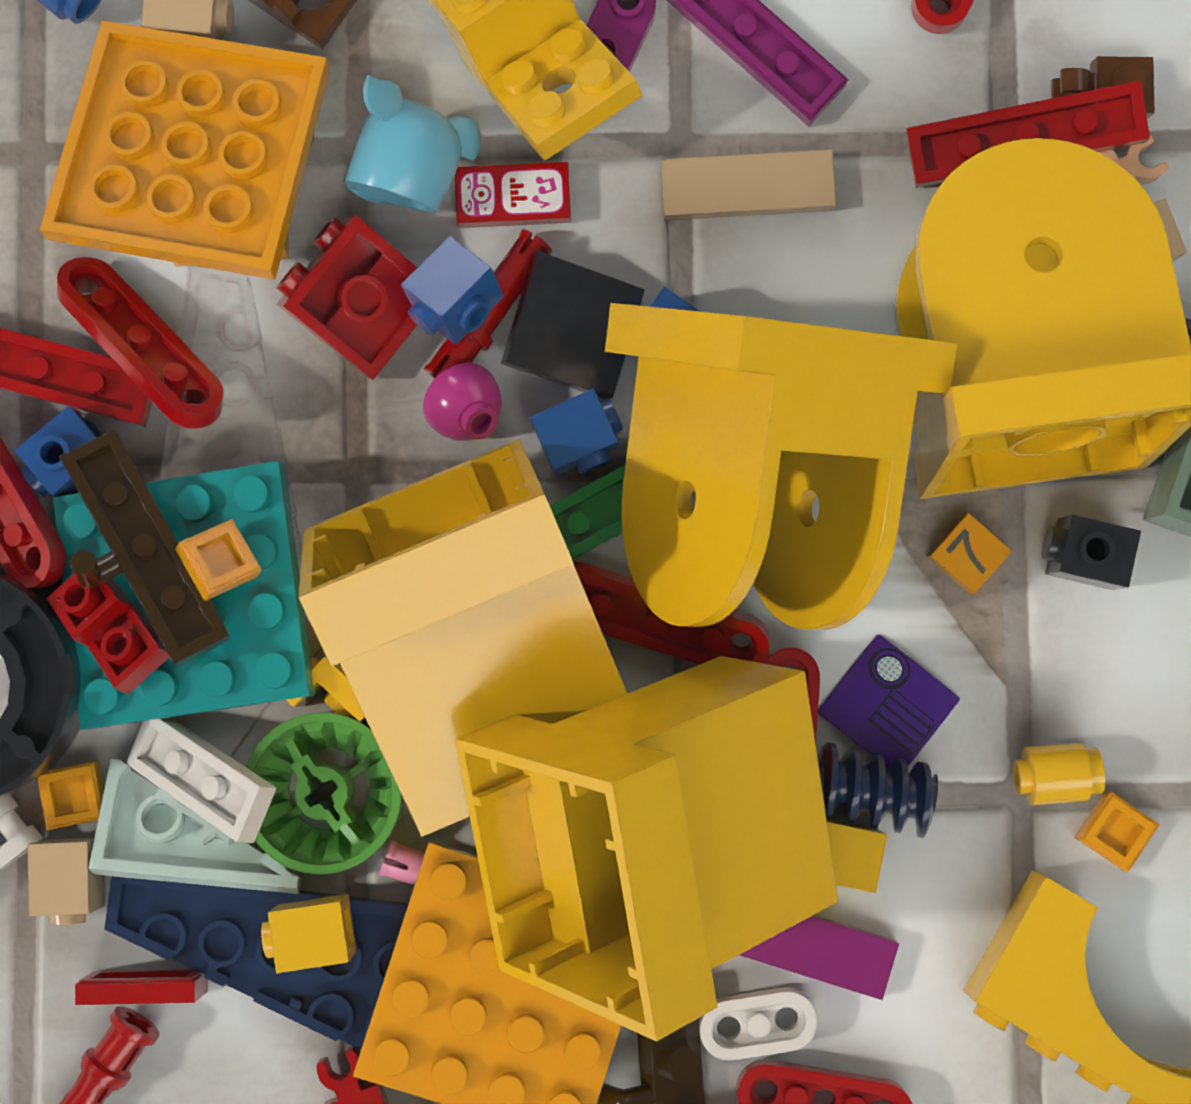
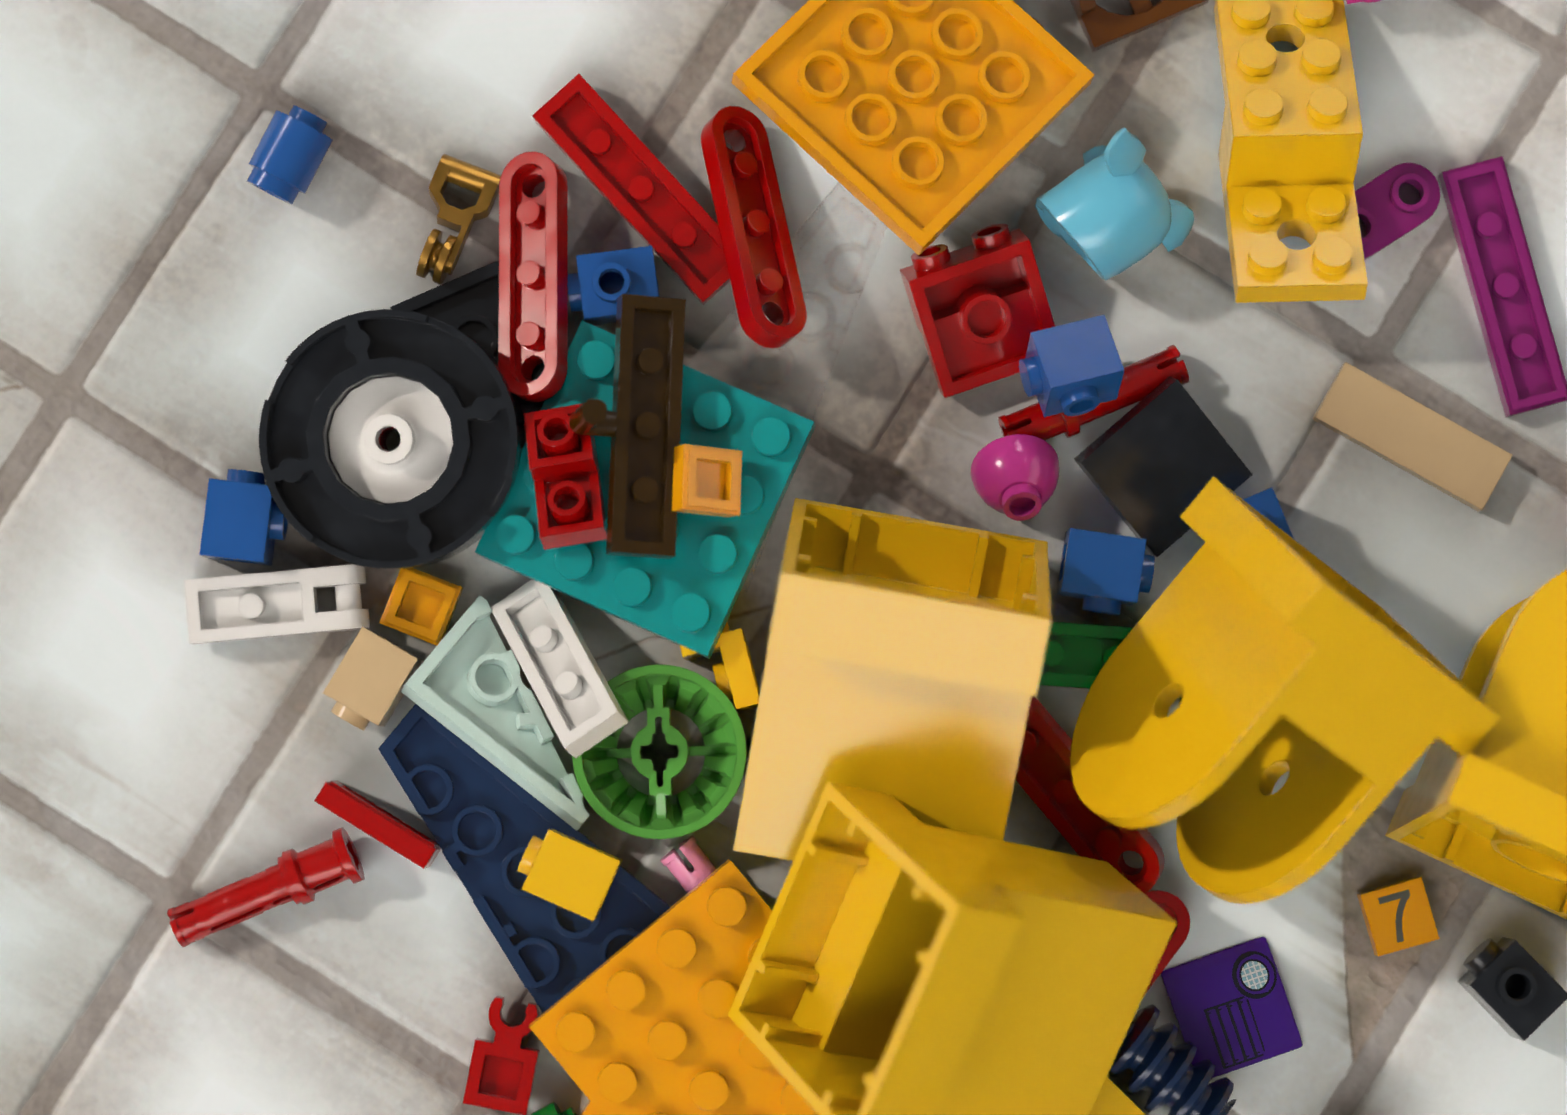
camera: 25 degrees right, 0 degrees up
(512, 195) = (1185, 306): tile -> none

